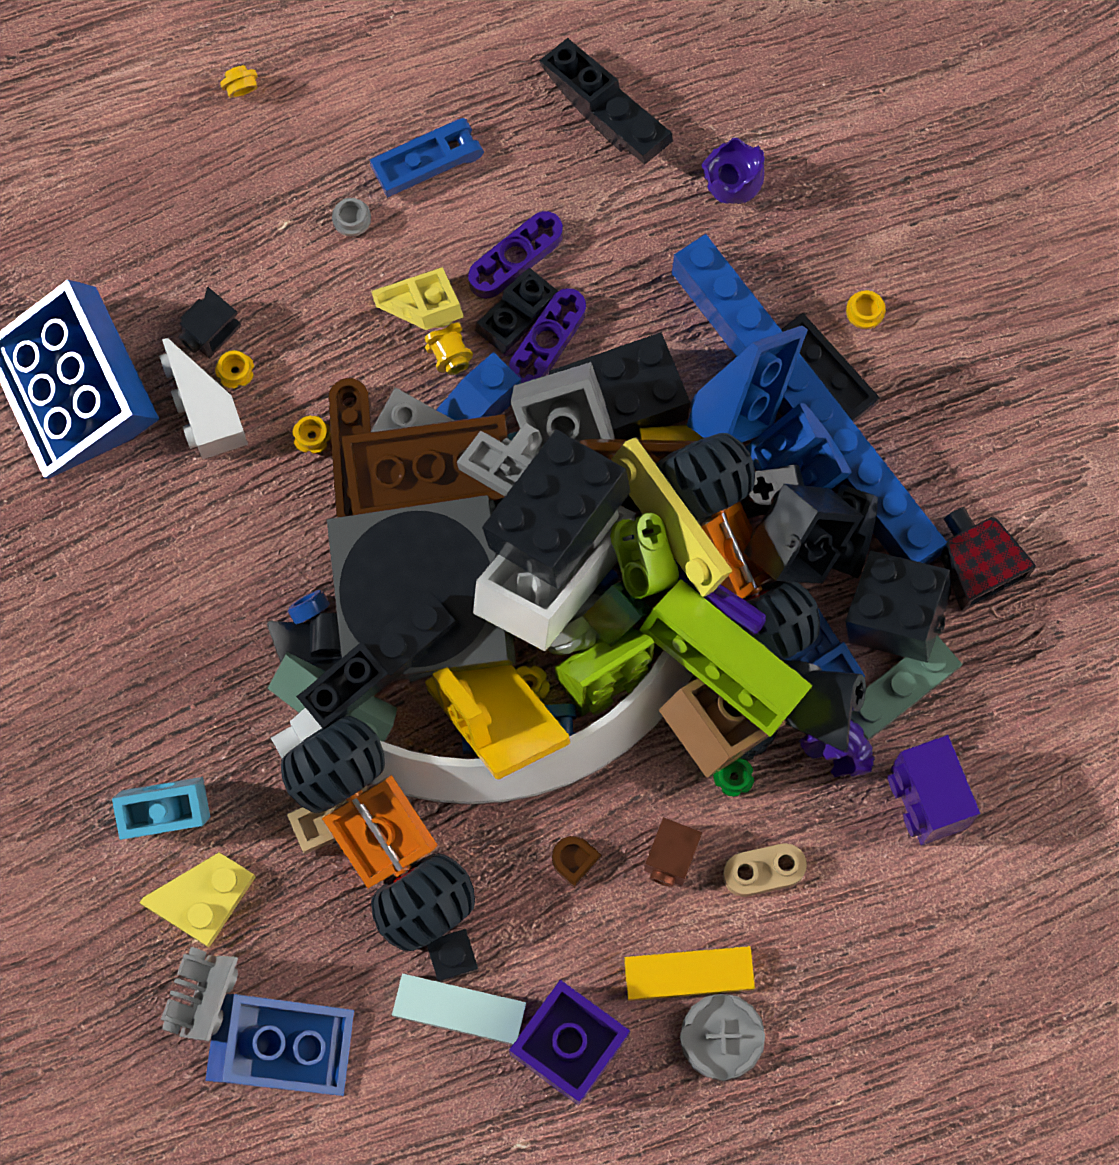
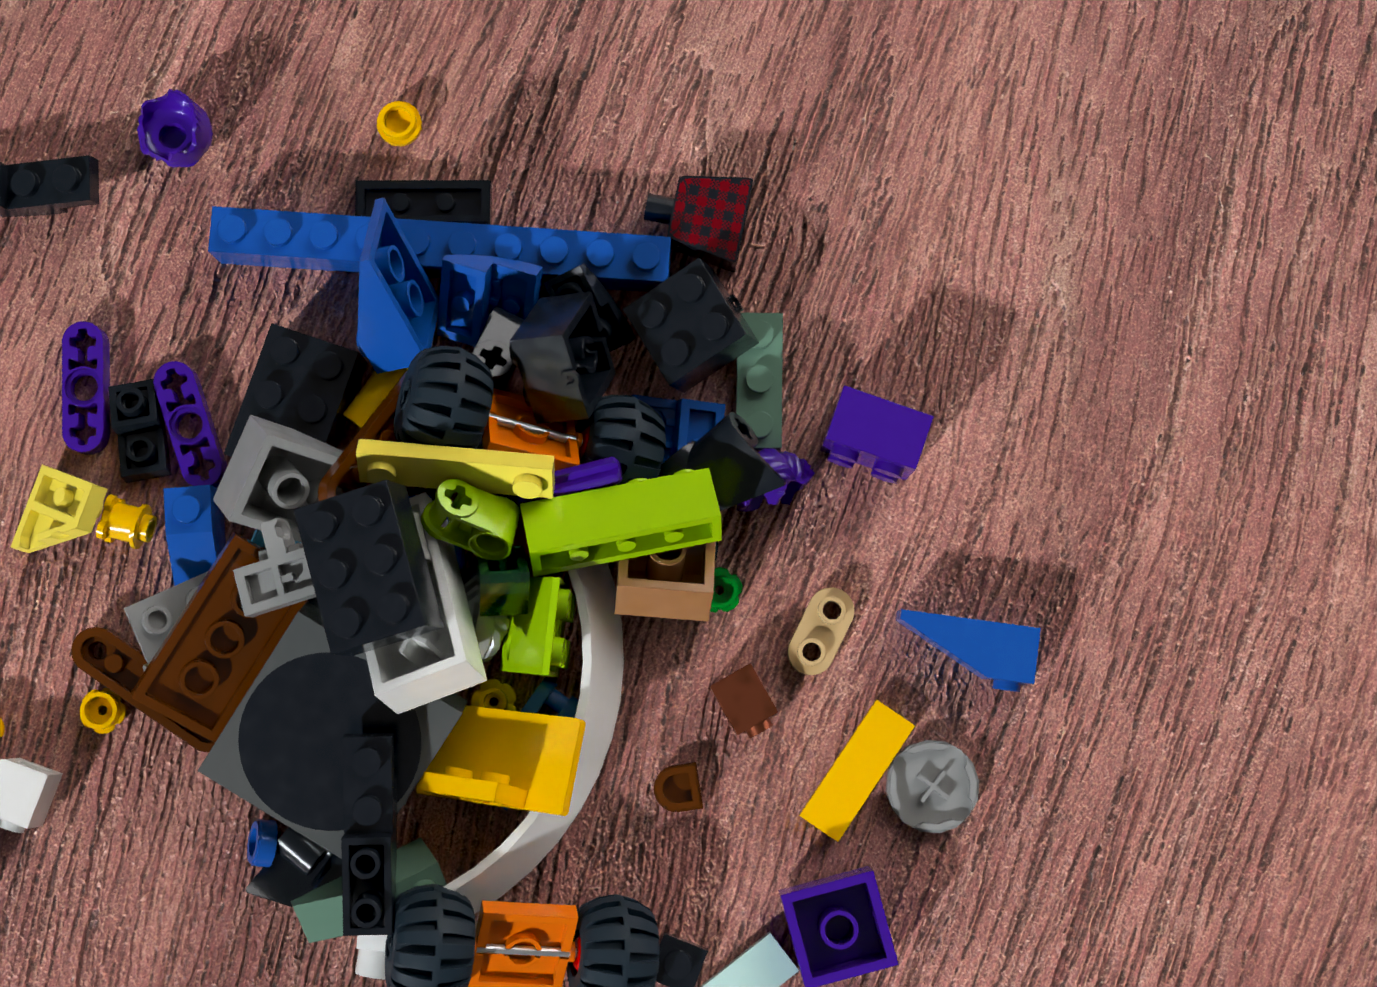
camera: 50 degrees left, 10 degrees up
(851, 992) = (984, 647): none -> blue slope

